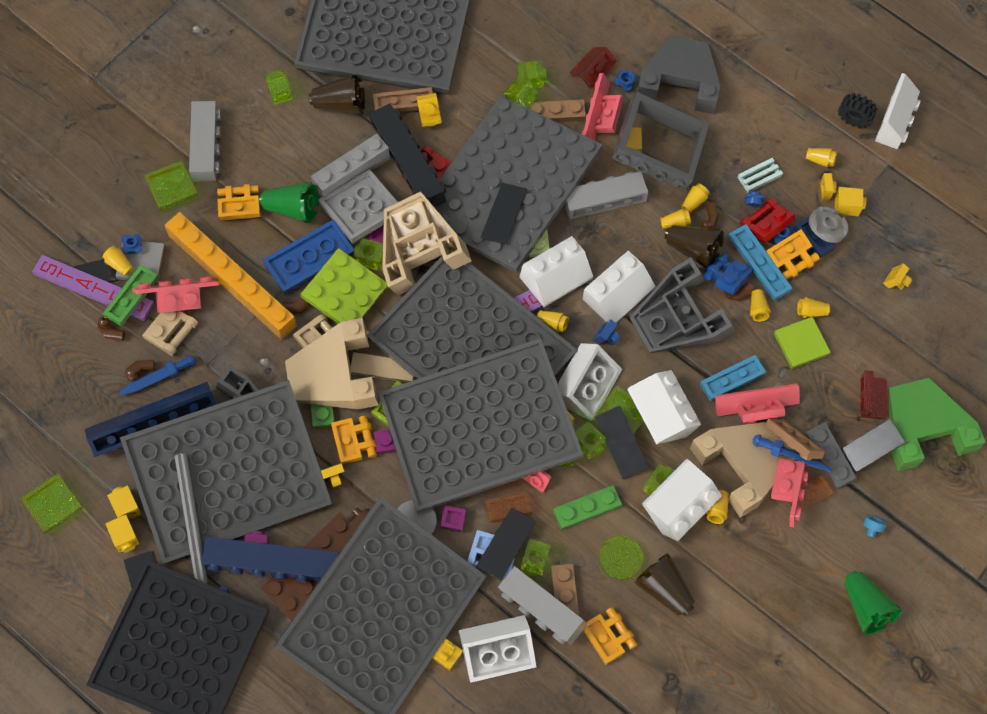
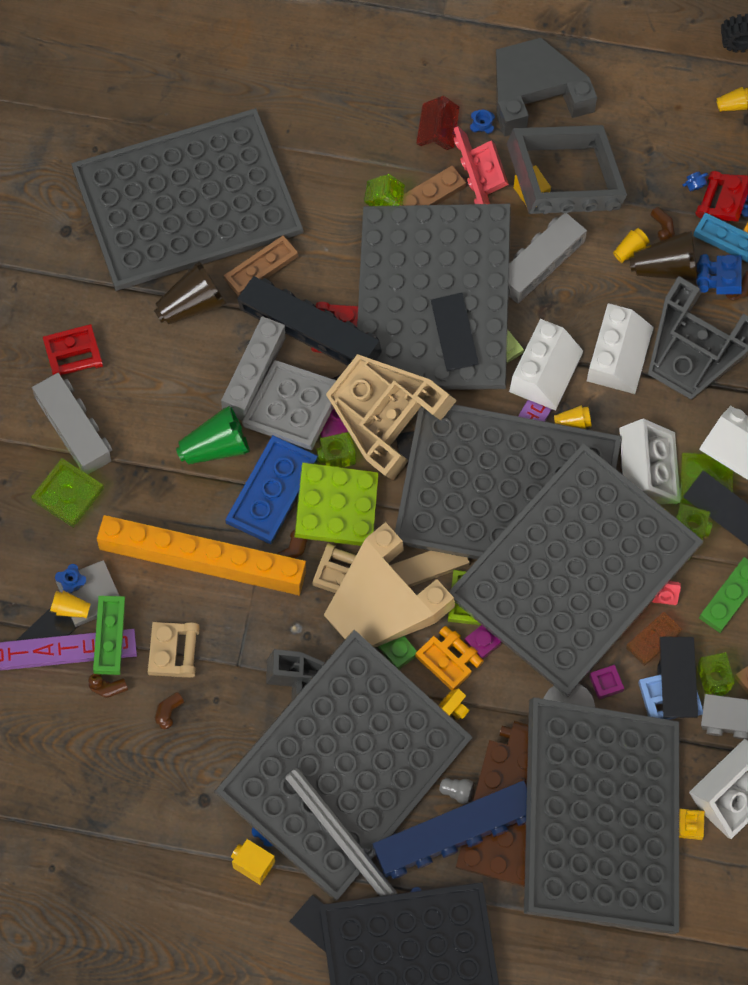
camera: 30 degrees left, 0 degrees up
(51, 503) = (172, 906): clear neon green plate -> none
(106, 435) = (221, 754): dark blue brick -> none
(122, 534) = (273, 894): yellow brick -> none
(170, 370) = (203, 692): blue sword -> none
(178, 295) = (161, 607): coral bracket -> none
(238, 87) = (70, 344): none -> red plate
(238, 207) = (159, 476): light orange plate -> none
(257, 537) = (419, 816): magenta plate -> none
(278, 87) = (113, 321): clear neon green brick -> none
(298, 535) = (458, 789): none -> light grey piece
(429, 110) = (297, 262): yellow bracket -> none
(533, 72) = (379, 164): clear neon green brick -> none
(606, 333) = (637, 402): blue tile -> none
(695, 197) = (635, 211): yellow cone -> none
(773, 168) = (692, 138): light aqua tile -> none

